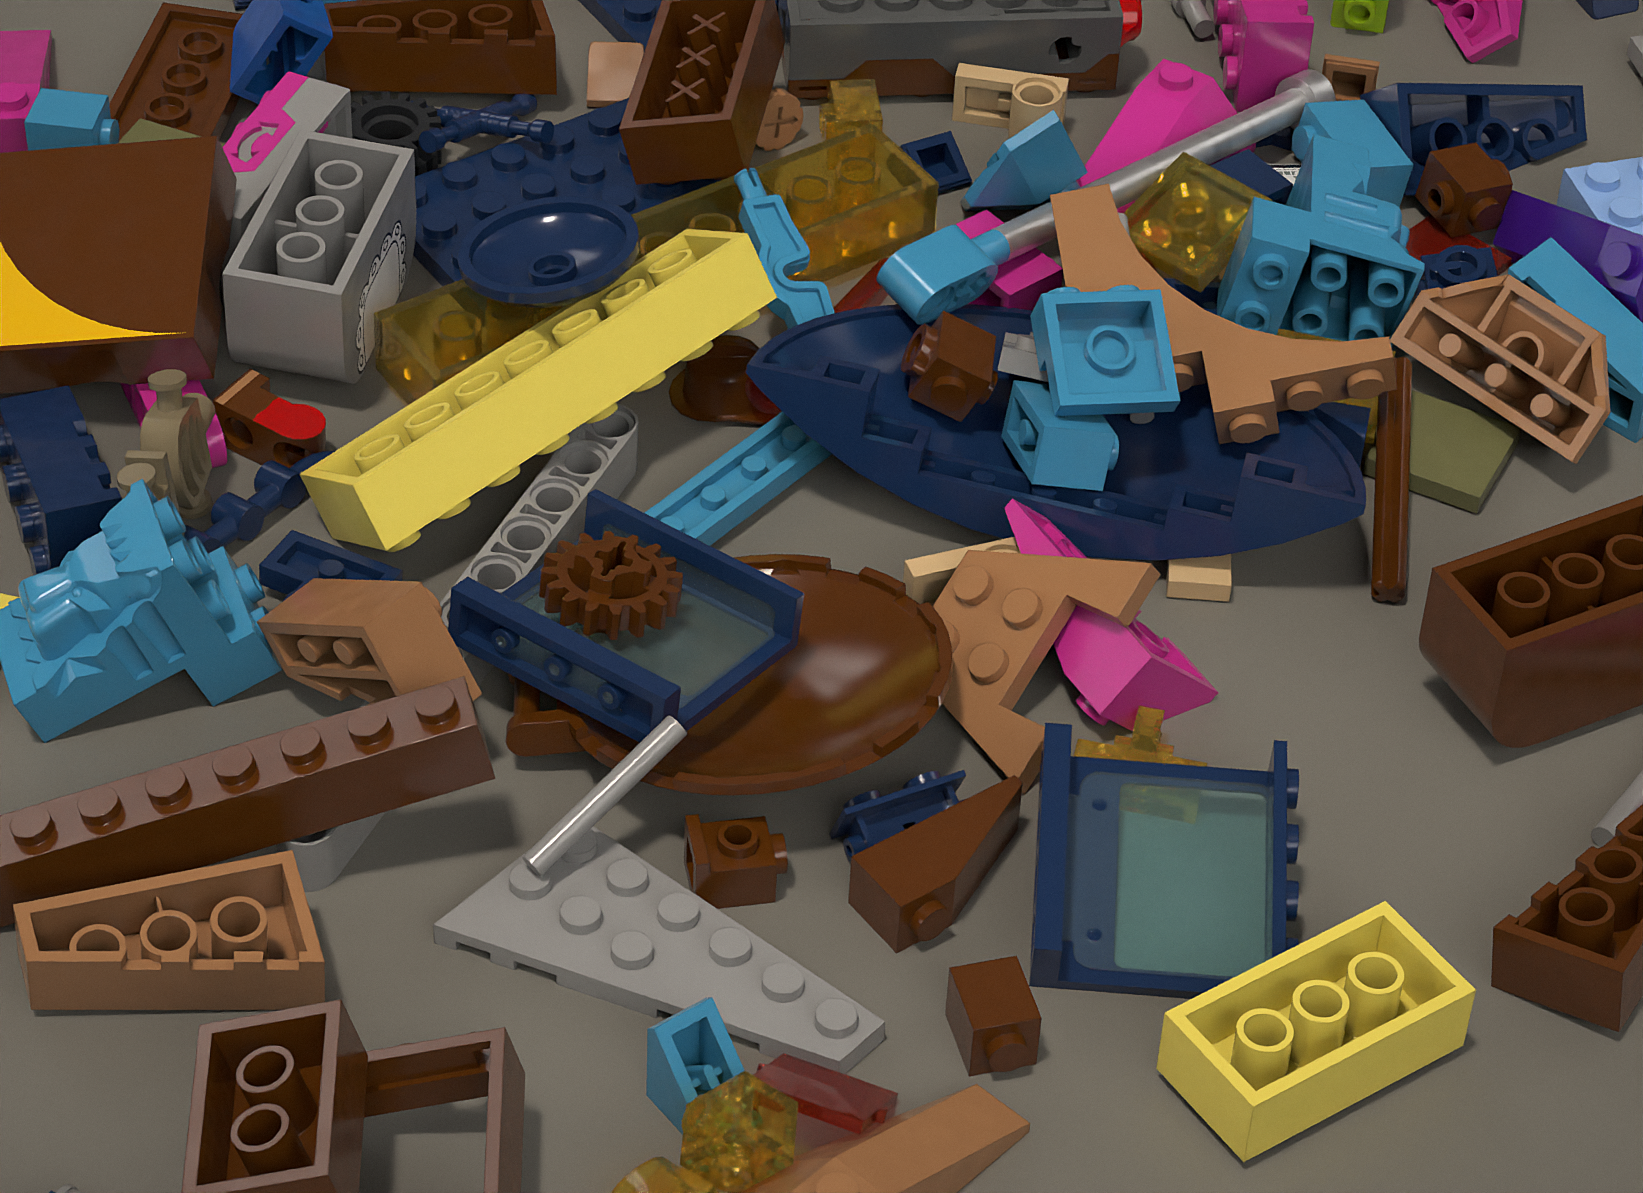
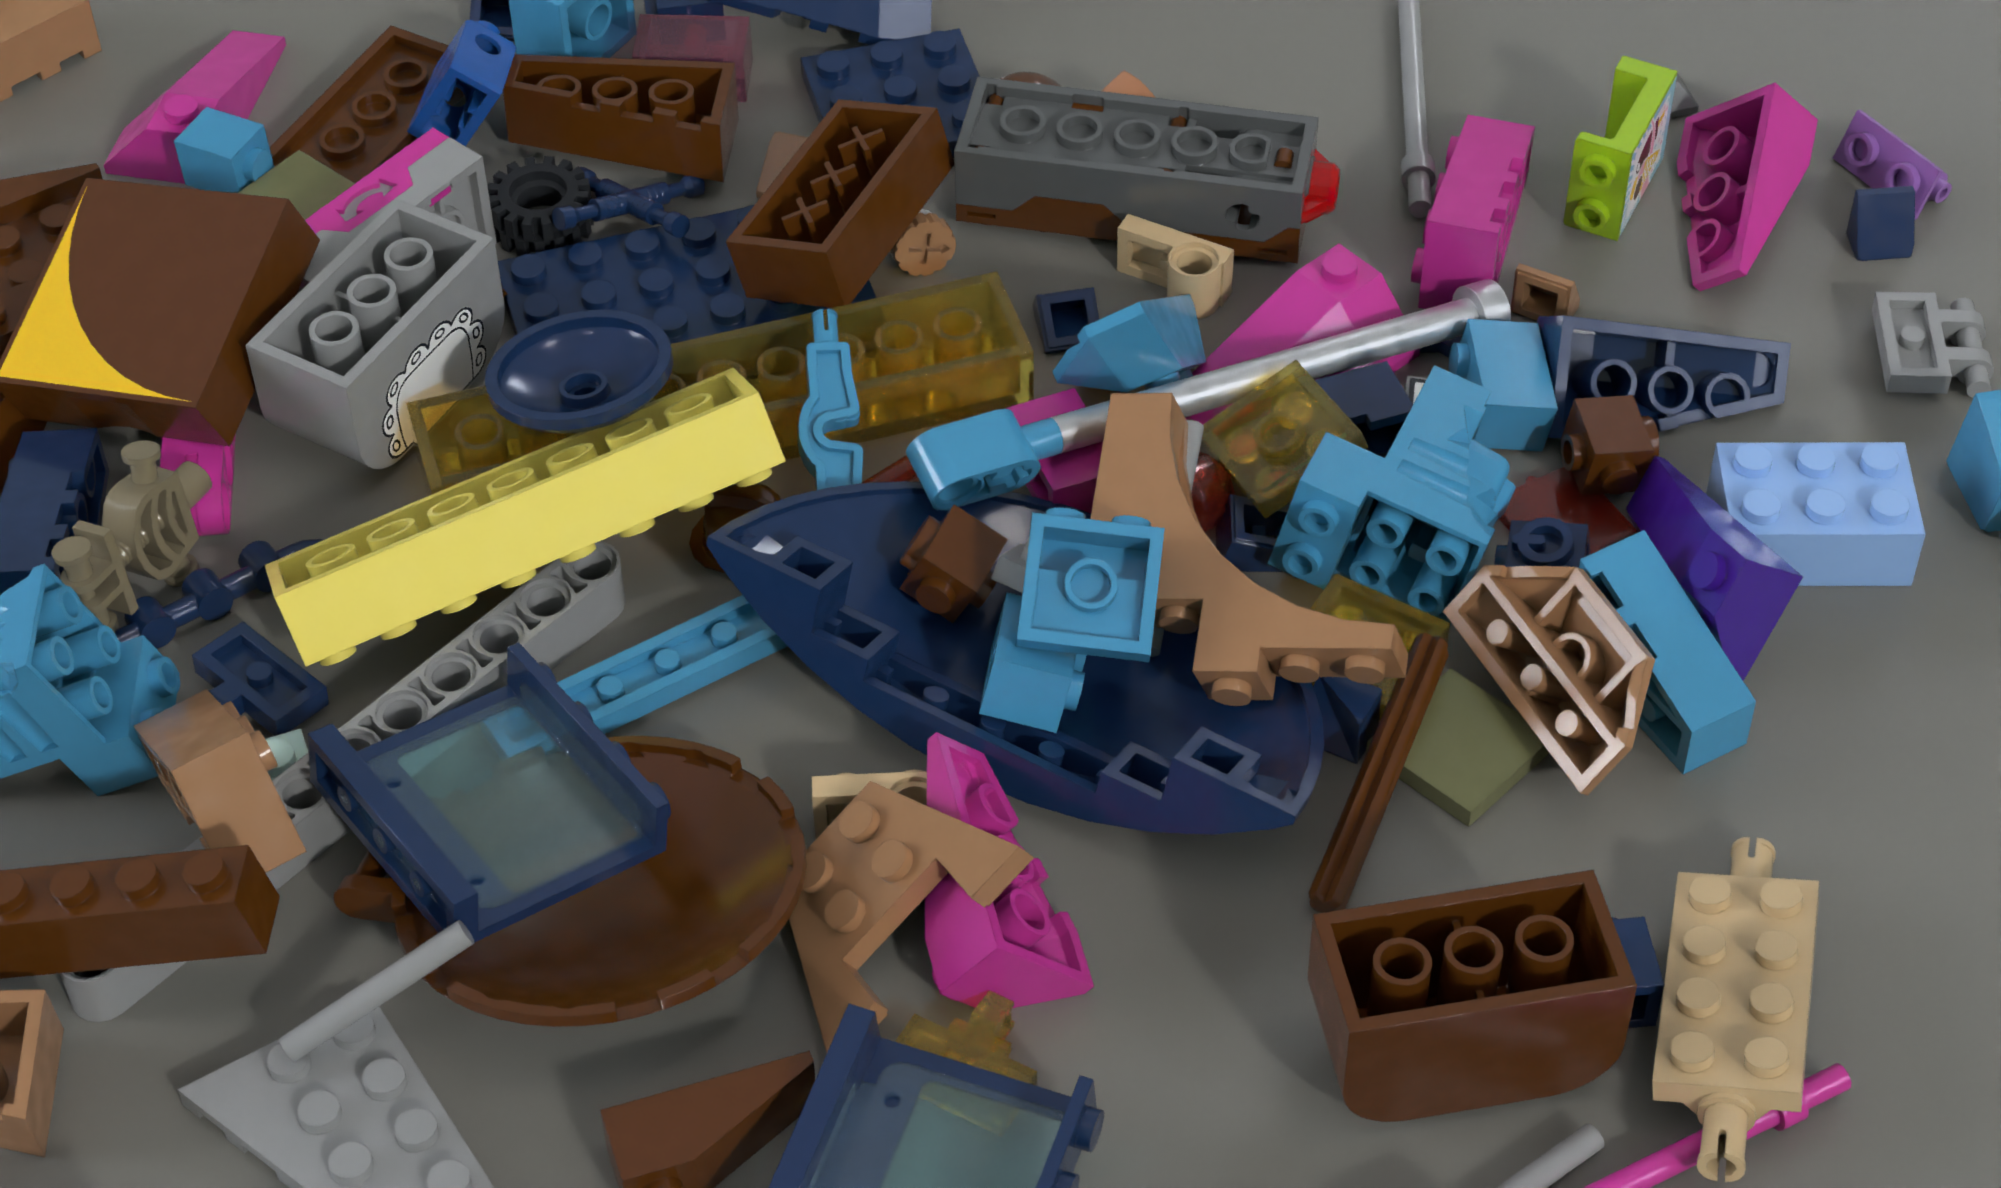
camera: 20 degrees right, 5 degrees up
(266, 424) = (272, 500): reddish brown leg -> none
(610, 585) = (484, 754): reddish brown gear -> none
(733, 860) = (497, 1082): reddish brown brick -> none
(849, 107) = (1003, 248): clear yellow brick -> none
(875, 817) = (668, 1065): dark blue hinge -> none
(1199, 578) = (1132, 849): tan tile -> none

